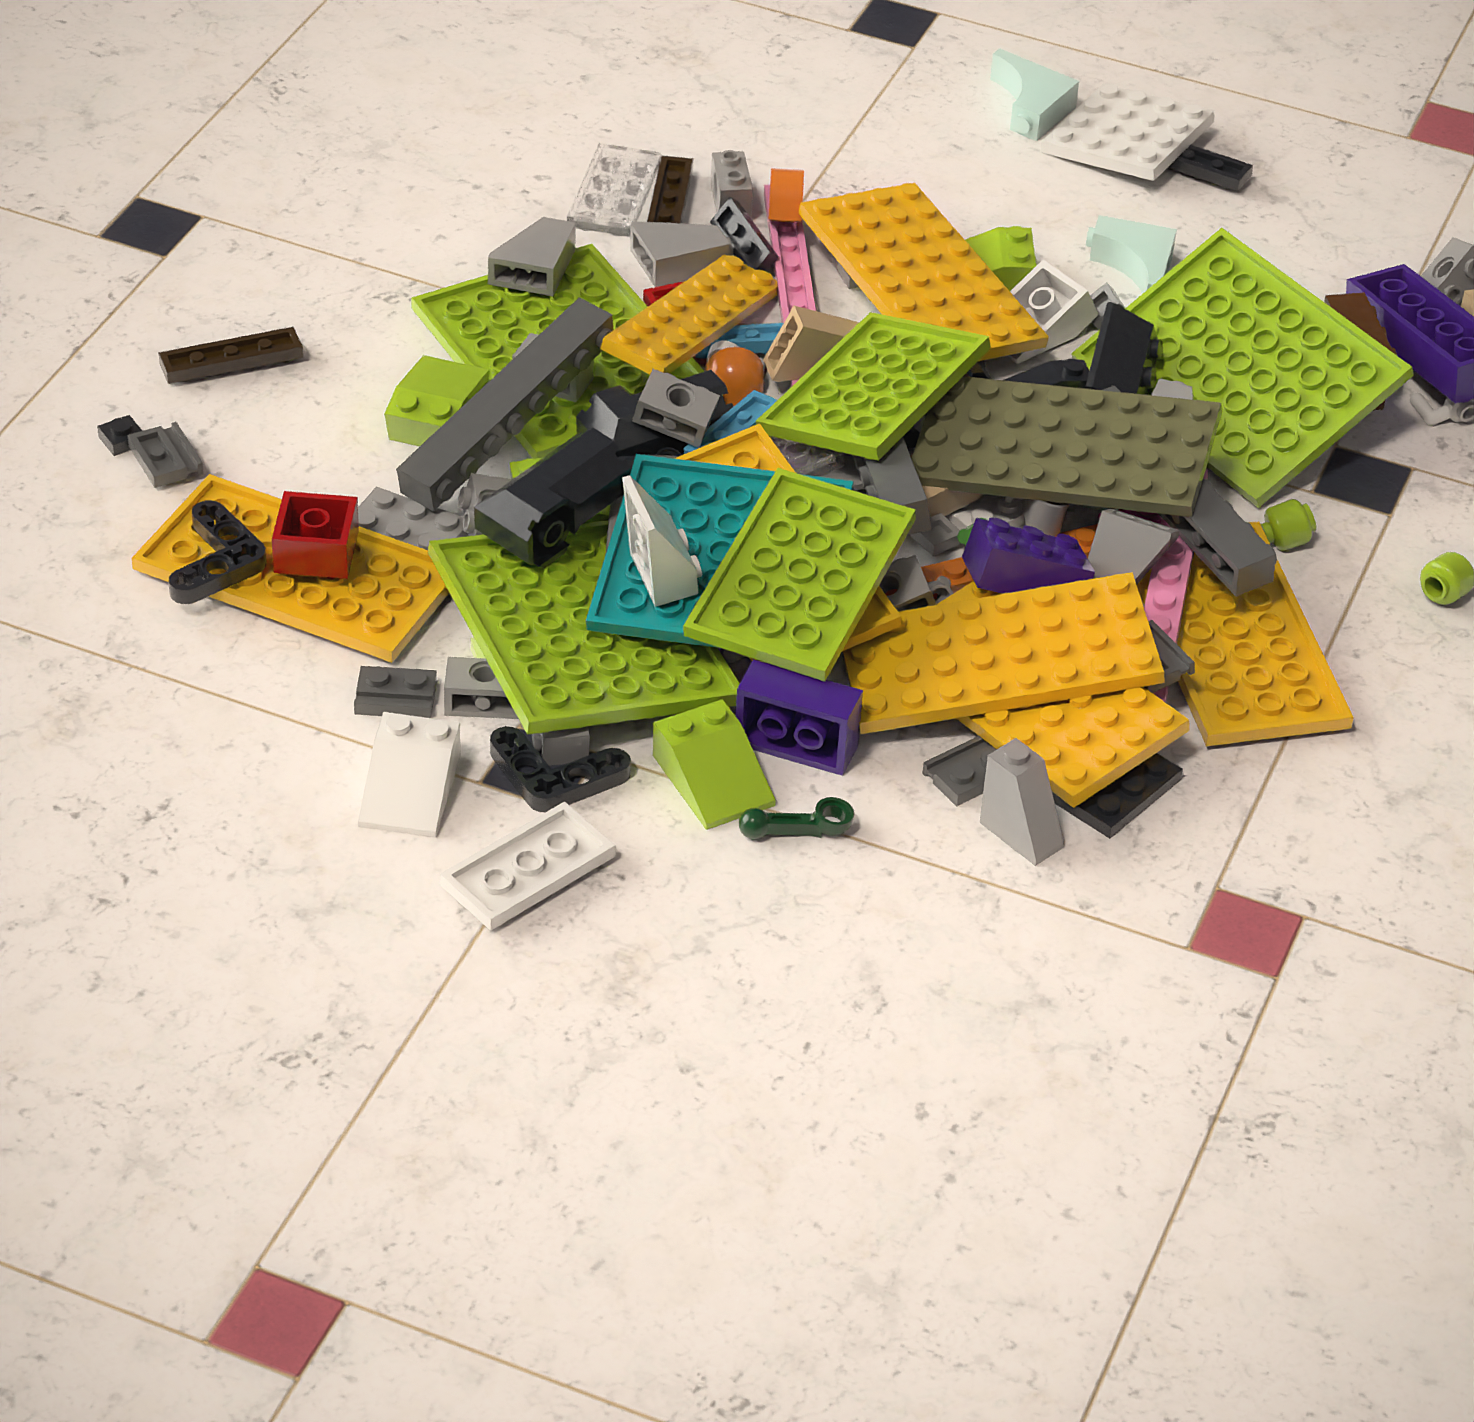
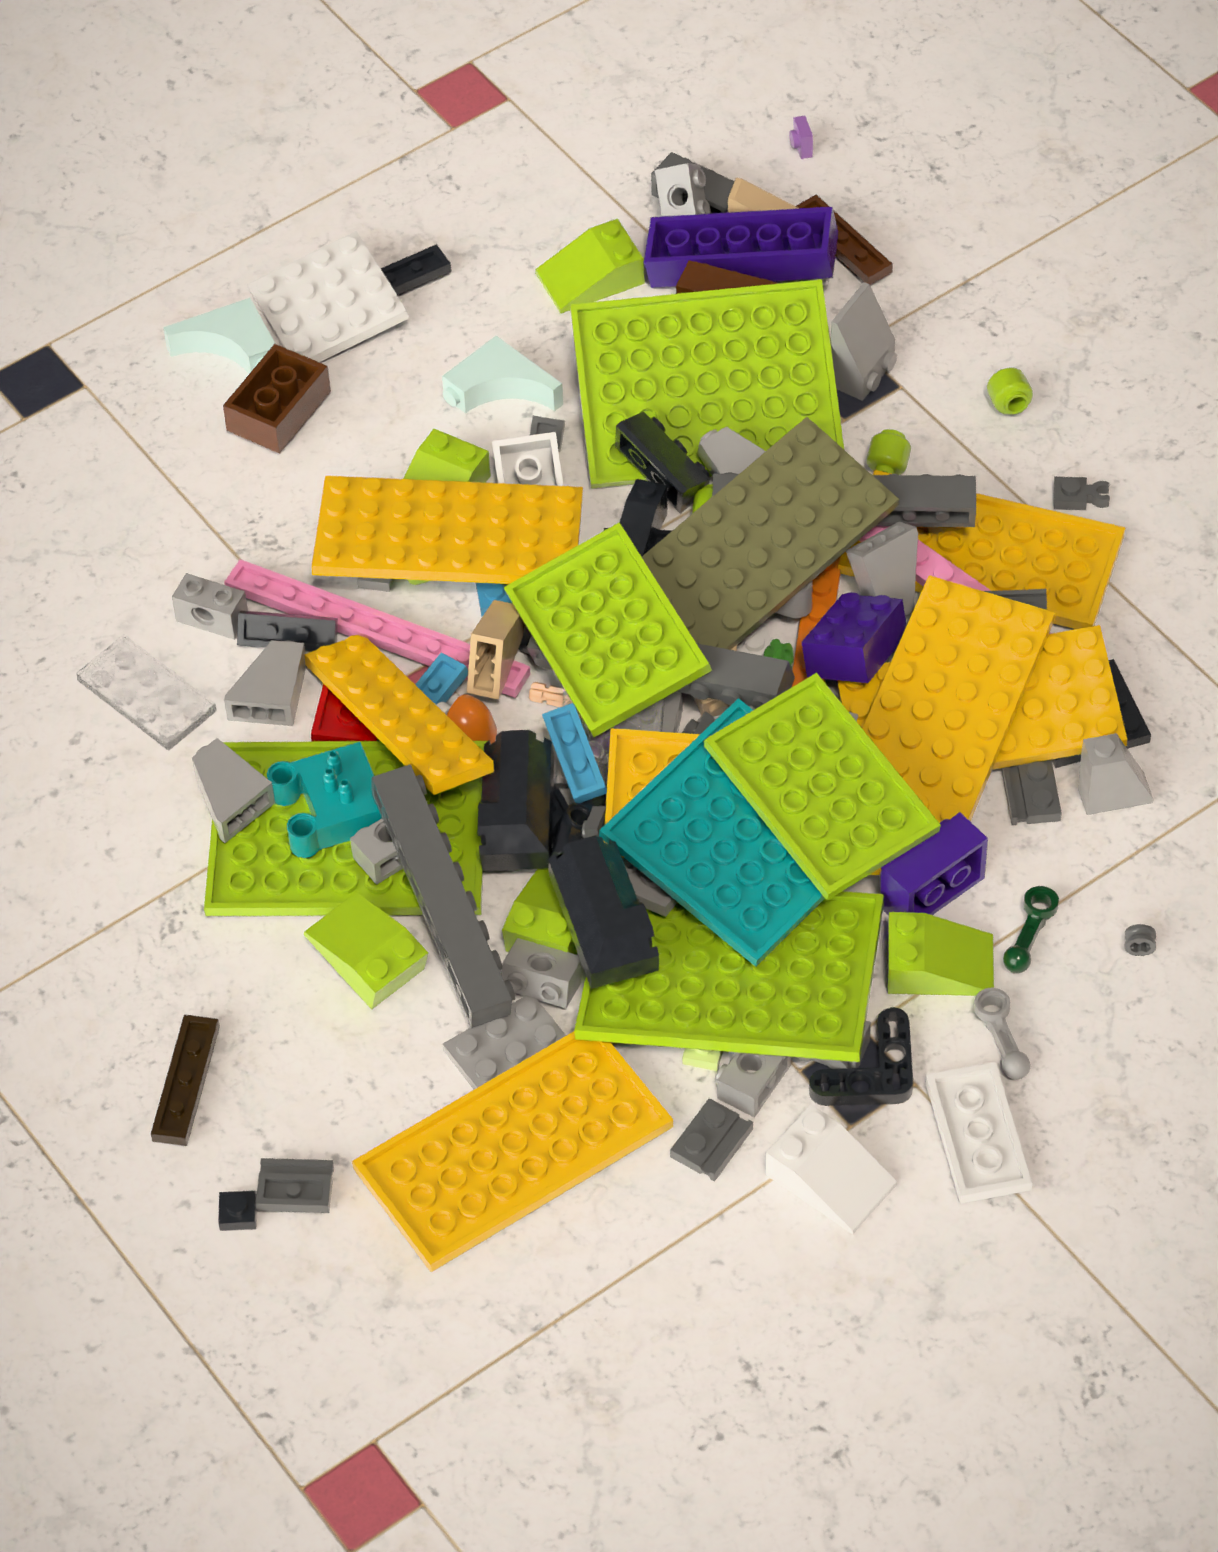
camera: 55 degrees left, 10 degrees up
(239, 556) = (478, 1183): black beam -> none
(315, 534) = (516, 1109): red brick -> none
(569, 284) = (337, 794): none -> teal piece
(628, 864) = (1015, 1063): none -> light grey piece
(658, 548) = (746, 870): white slope -> none
(671, 190) = (186, 657): dark brown plate -> none
(683, 422) = (549, 776): light grey brick -> none
(785, 195) = (278, 571): orange brick -> none
(846, 904) = (1140, 940): none -> dark grey bush
(987, 138) = (276, 398): none -> reddish brown brick
(1327, 262) = (592, 267): none -> lime slope
(1373, 674) = (1074, 493): none -> dark grey plate
(1389, 443) = (861, 344): none -> light grey slope

